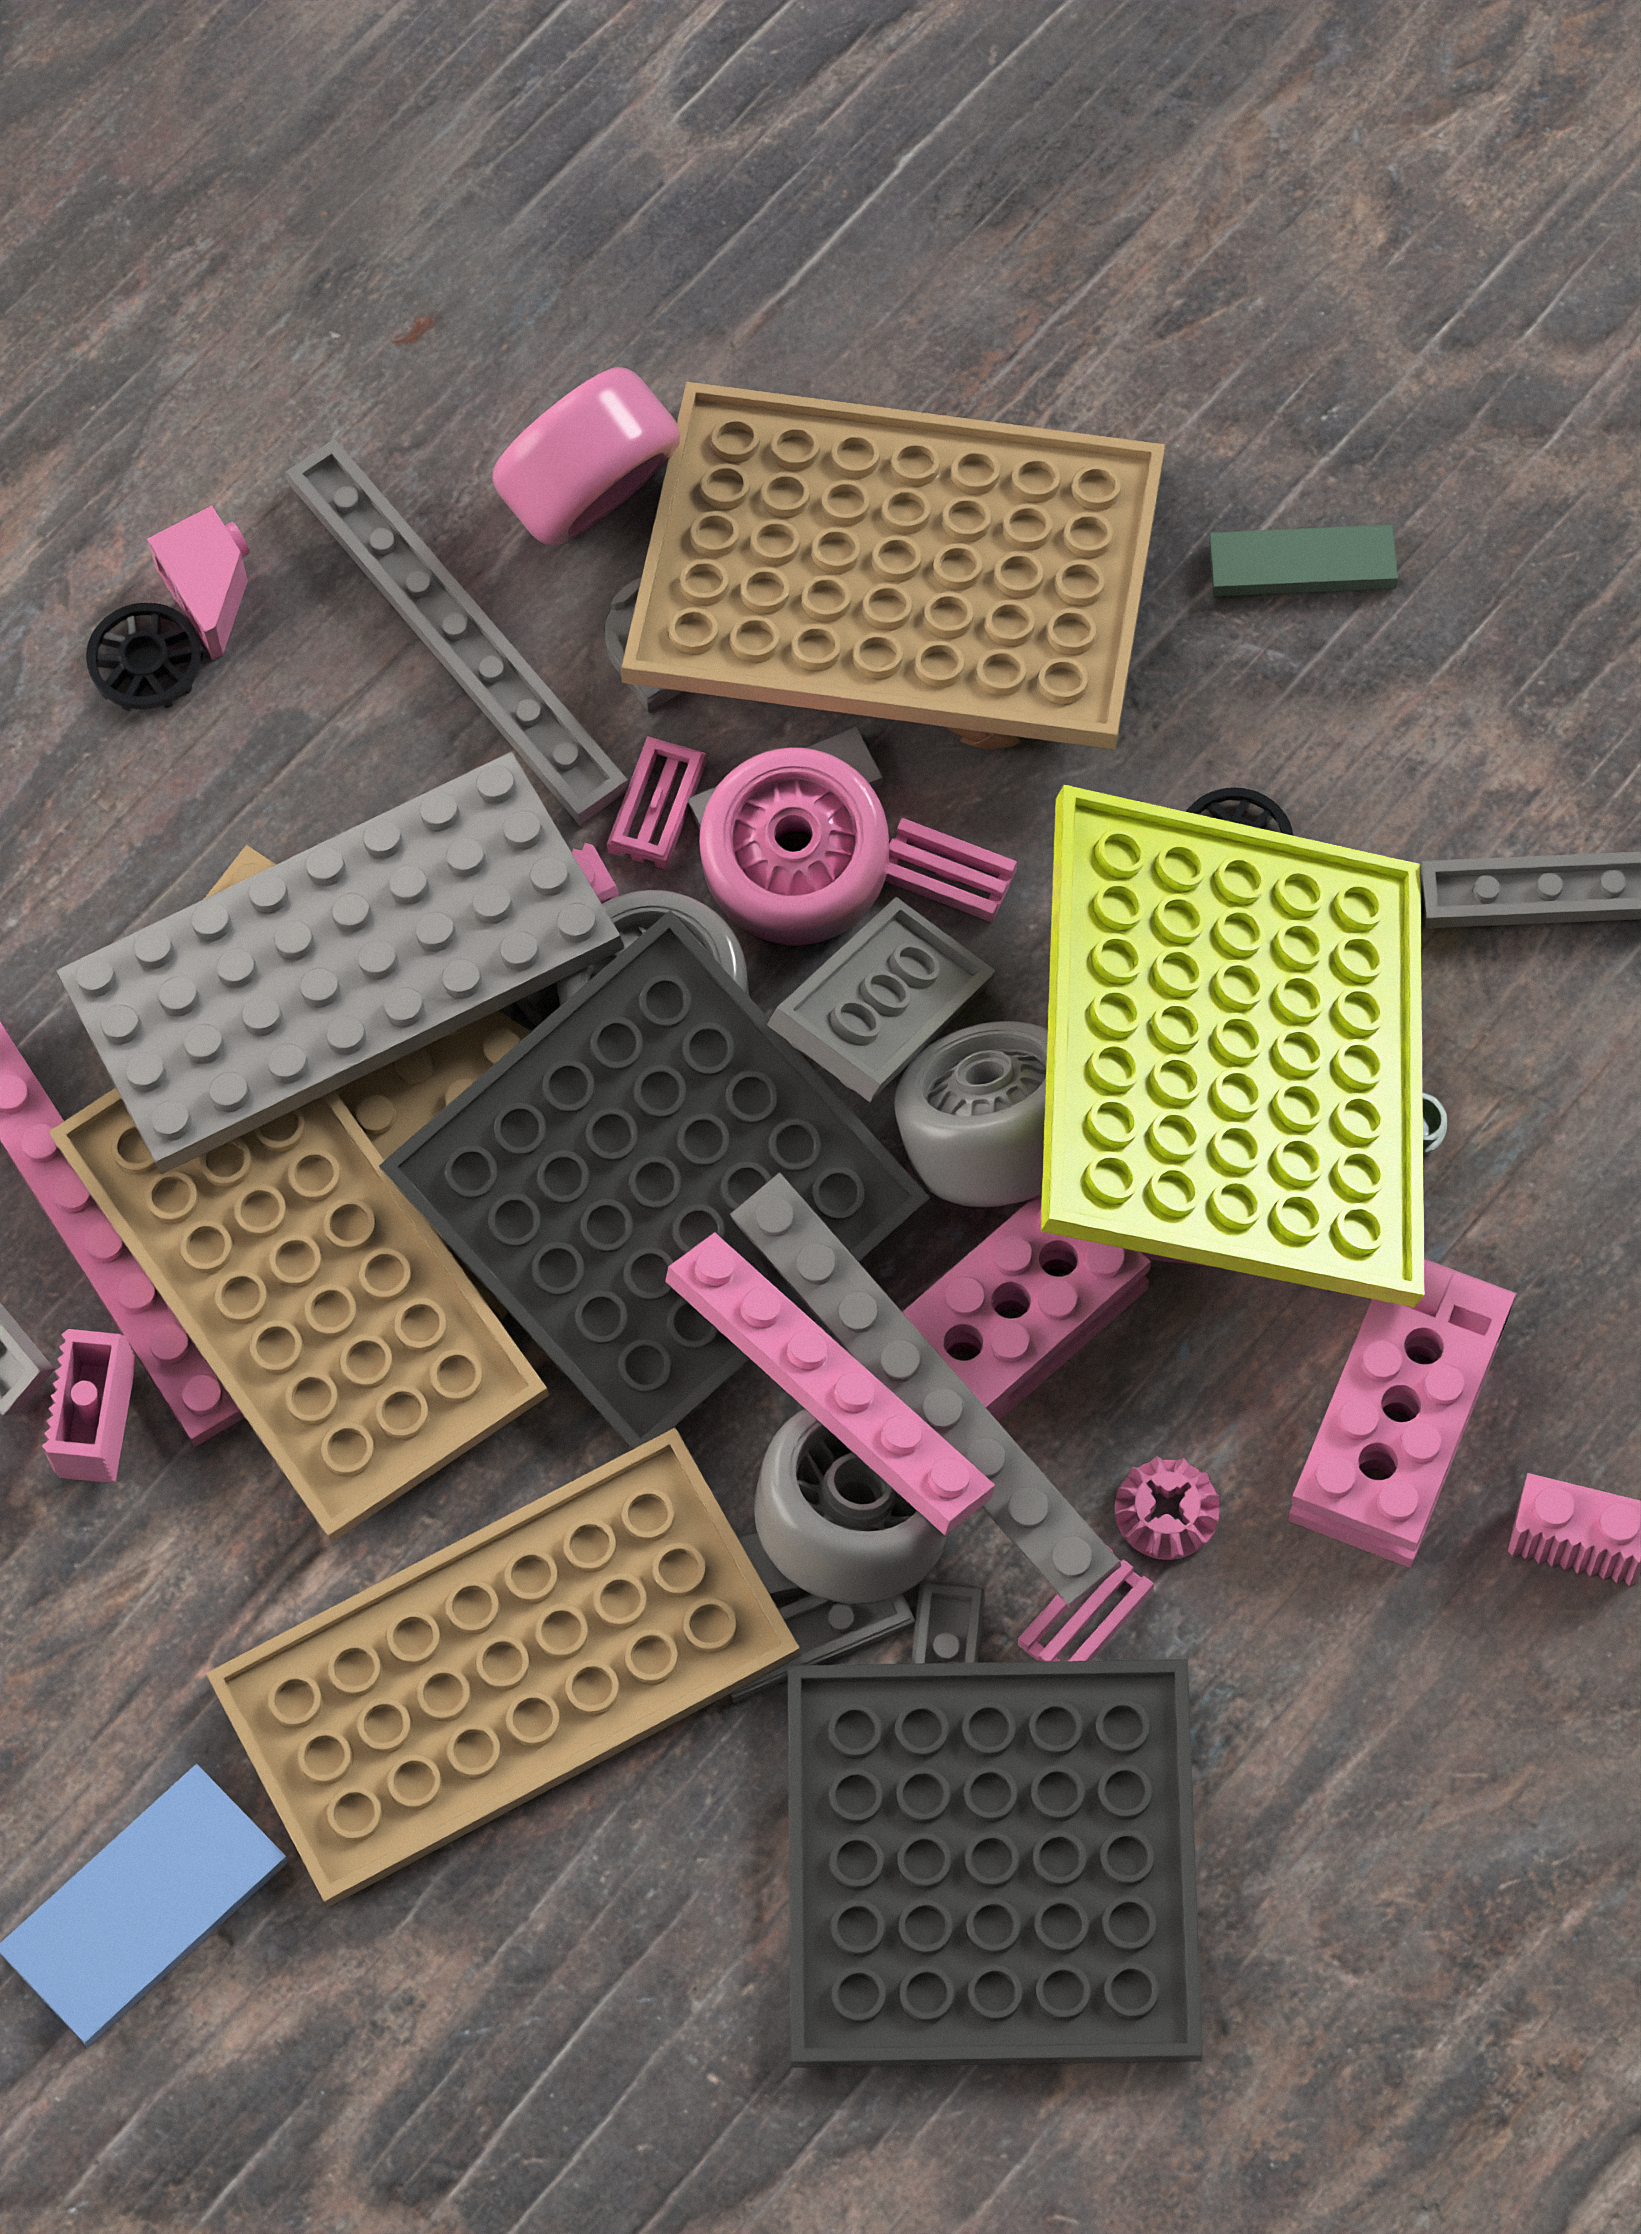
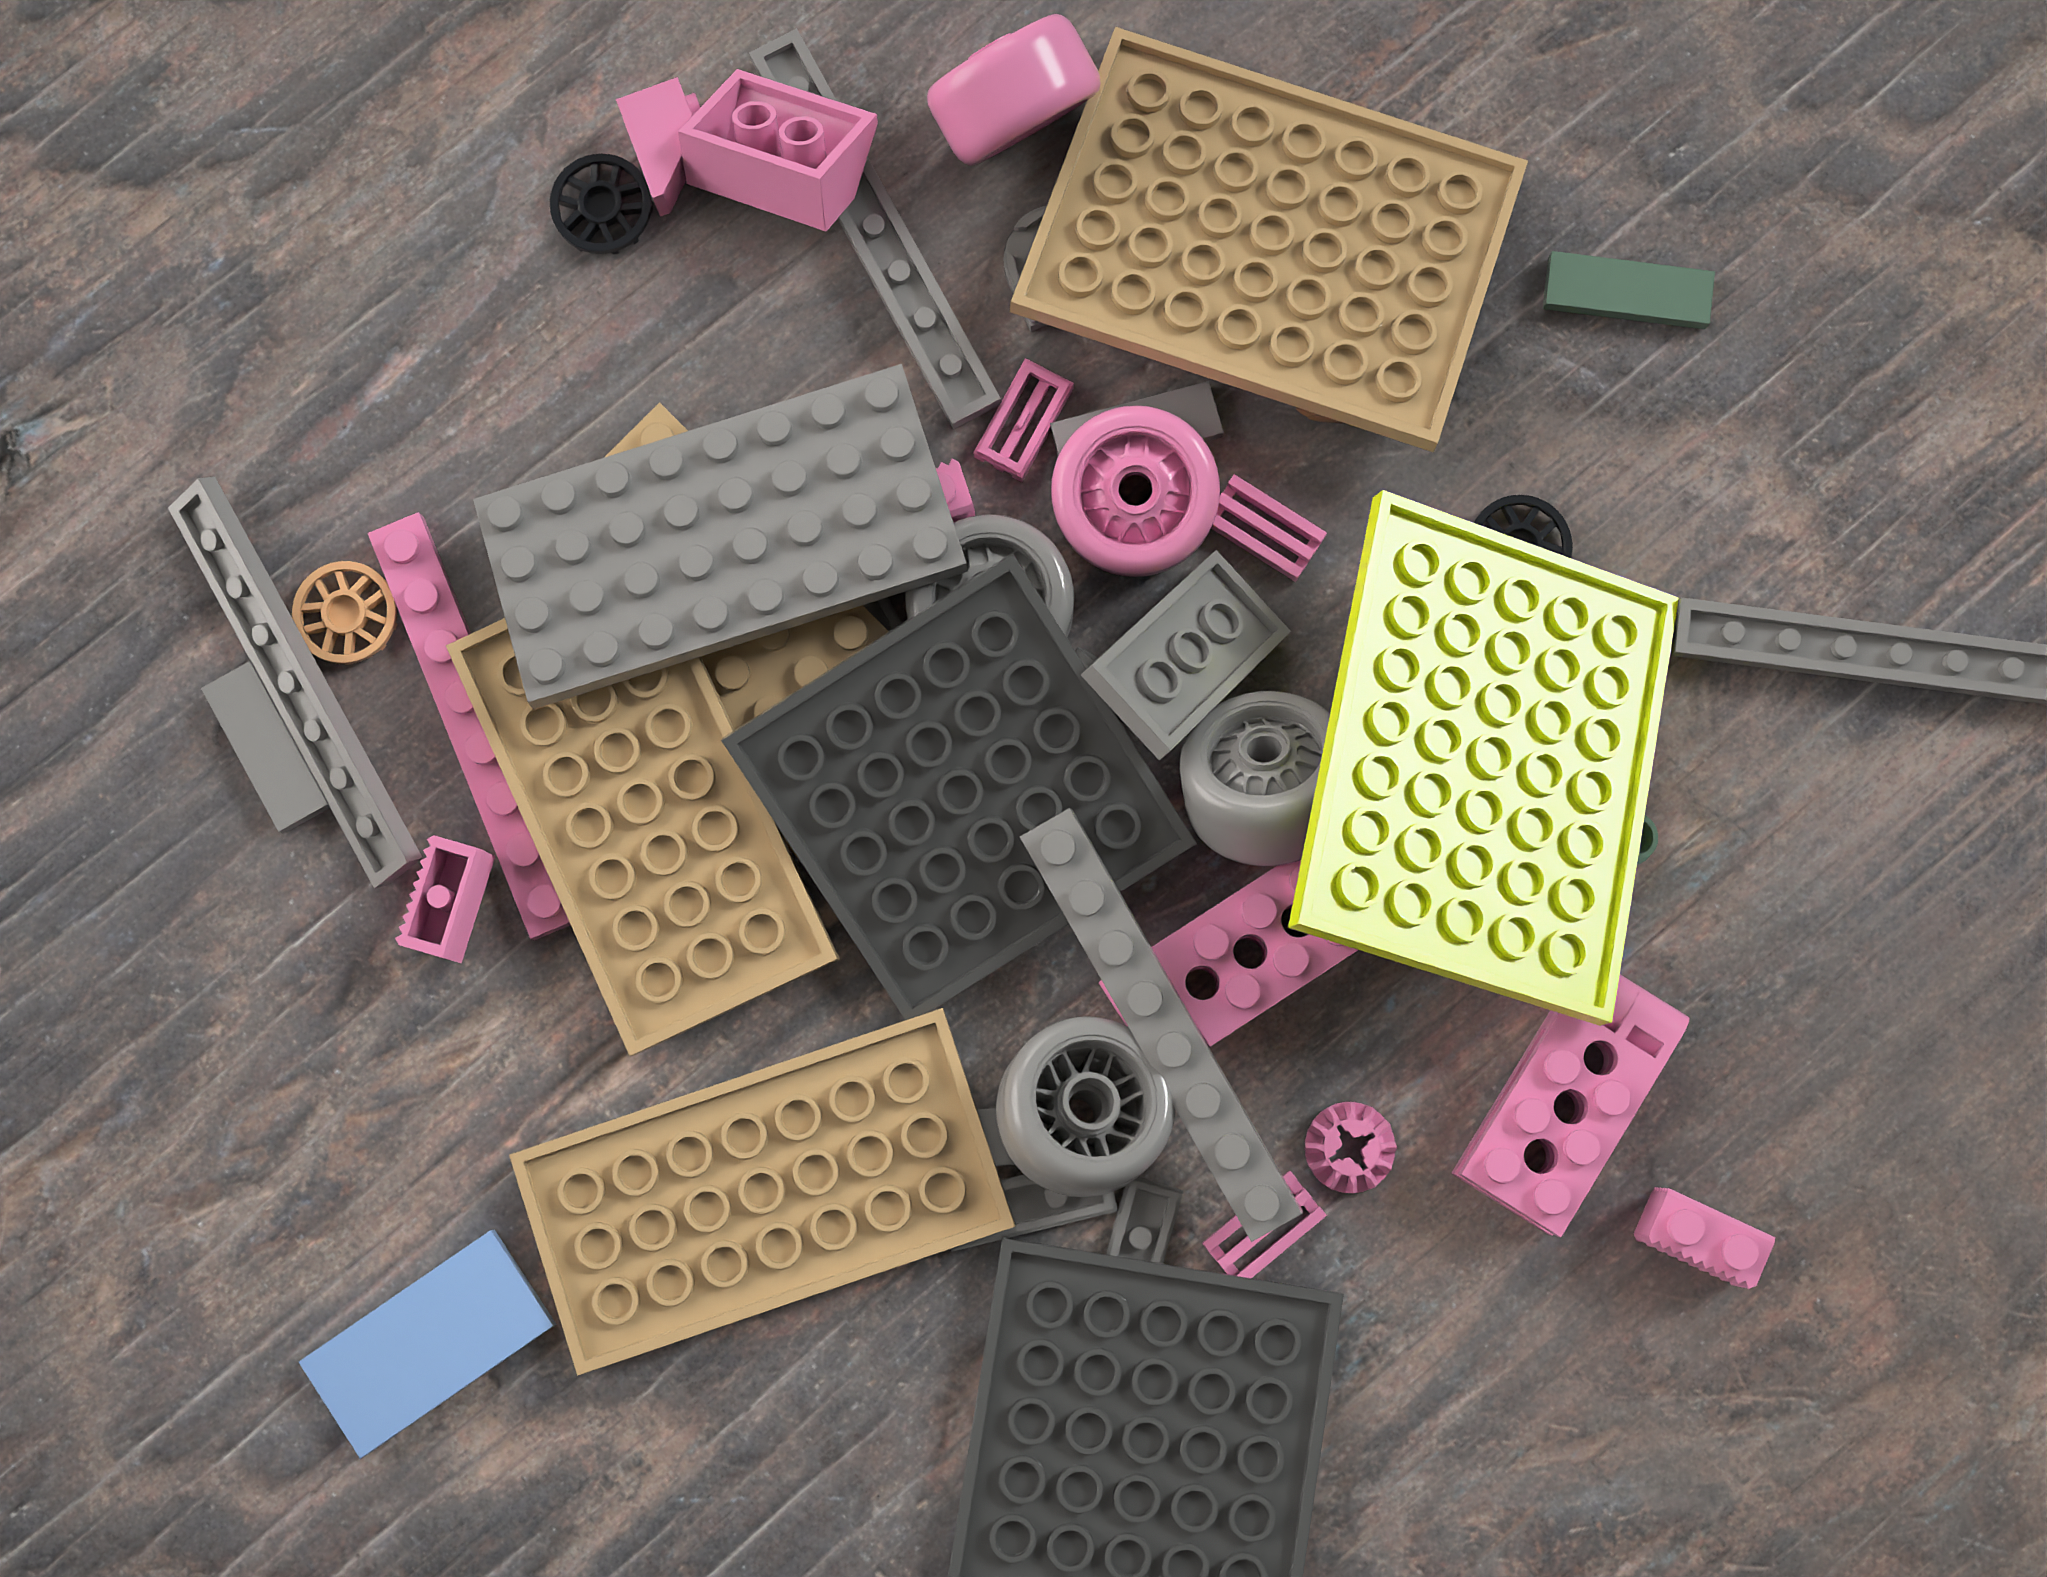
camera: 10 degrees right, 15 degrees up
(335, 561) = (778, 149): none -> bright pink slope
(830, 1383) = (1079, 1010): bright pink plate -> none

